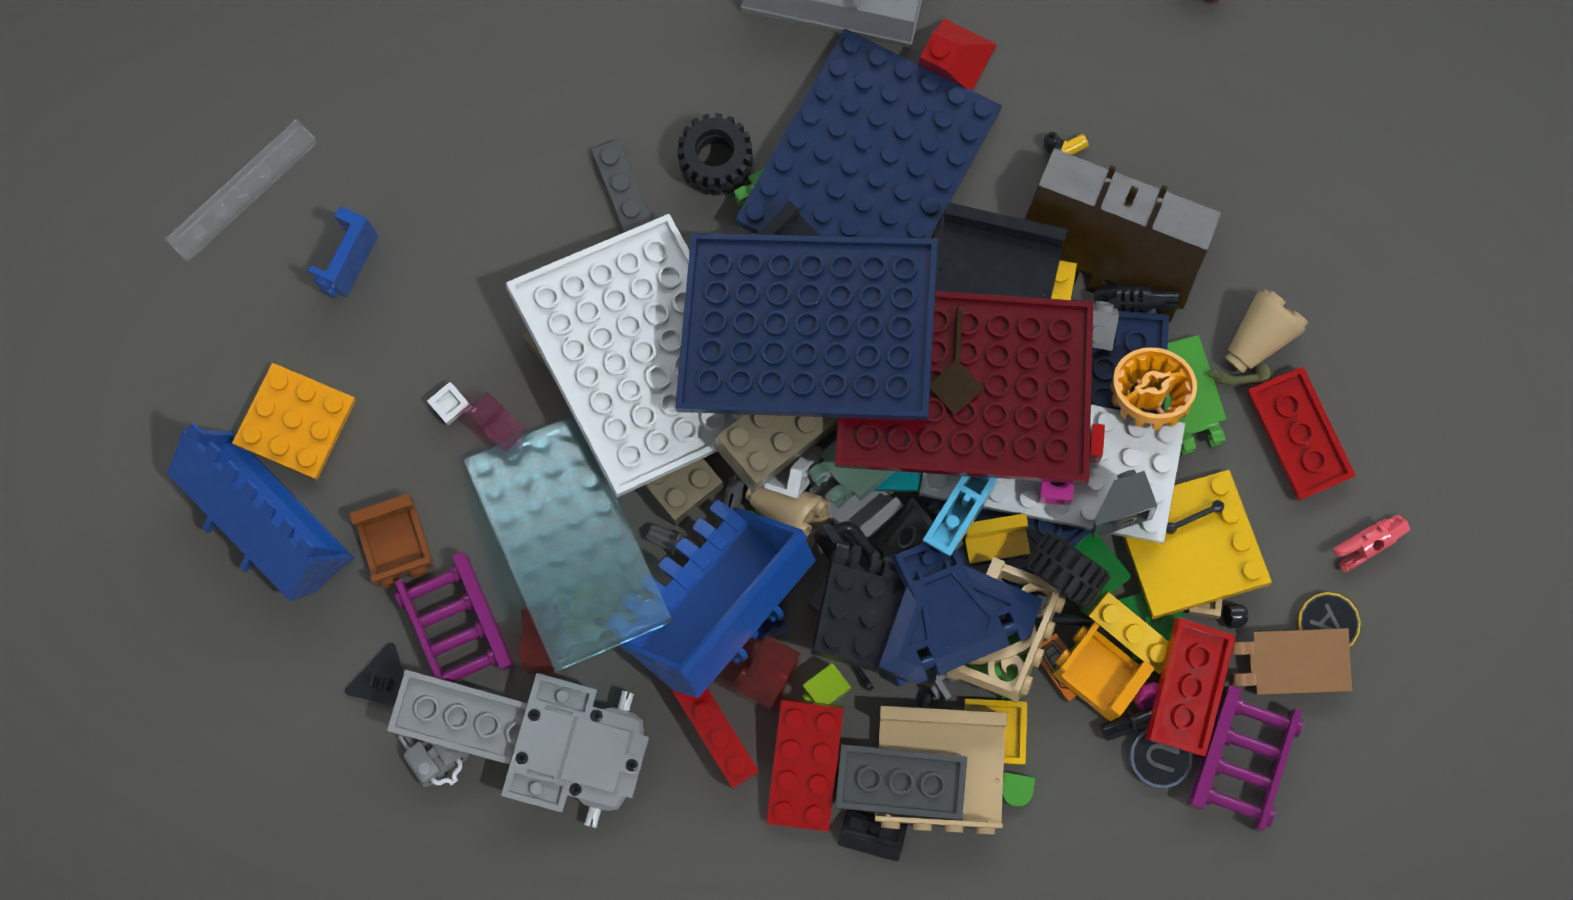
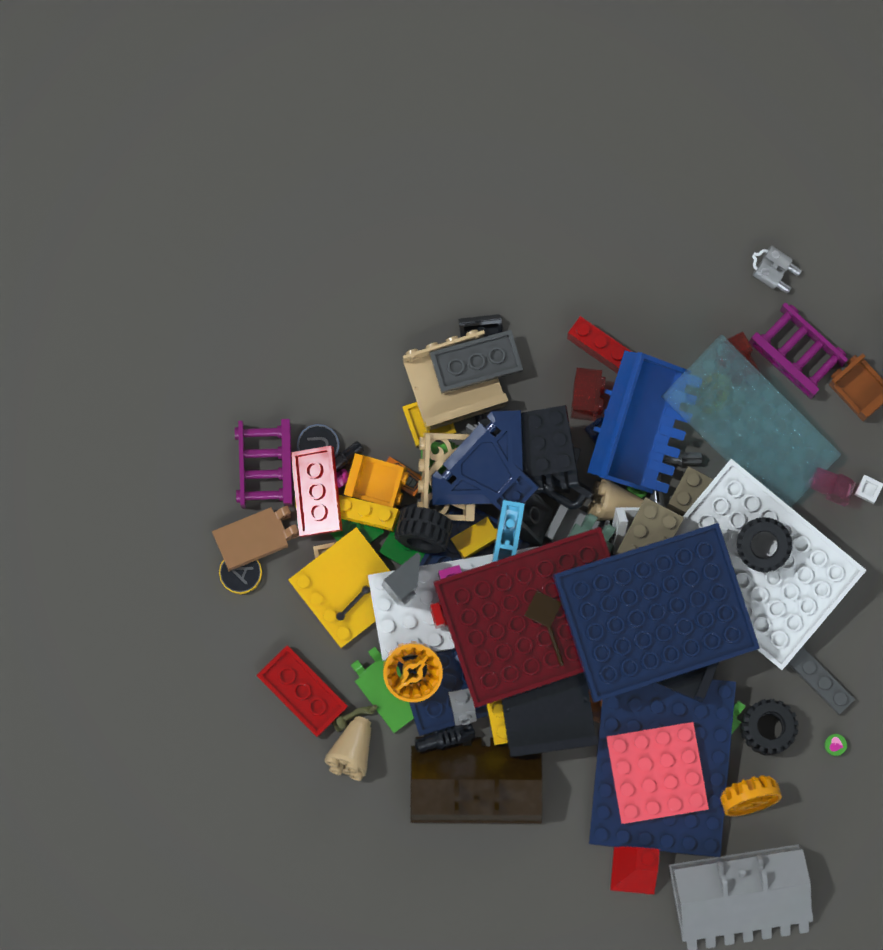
camera: 155 degrees right, 0 degrees up
(380, 679) = (827, 301): black piece -> none
(551, 743) = (705, 300): light grey piece -> none
(625, 339) = (783, 538): none -> black tyre
(641, 106) = (835, 744): none -> bright green tile
(778, 76) = (750, 796): none -> light orange gear
(805, 764) = (540, 350): red plate -> none
(826, 686) = (547, 398): lime brick -> none
(883, 148) = (657, 772): none -> coral plate
(1017, 789) = (401, 390): bright green tile -> none
(1071, 147) = (535, 831): arm -> none
(1235, 615) = (302, 553): black hinge -> none
(1371, 541) = (231, 636): coral hinge -> none

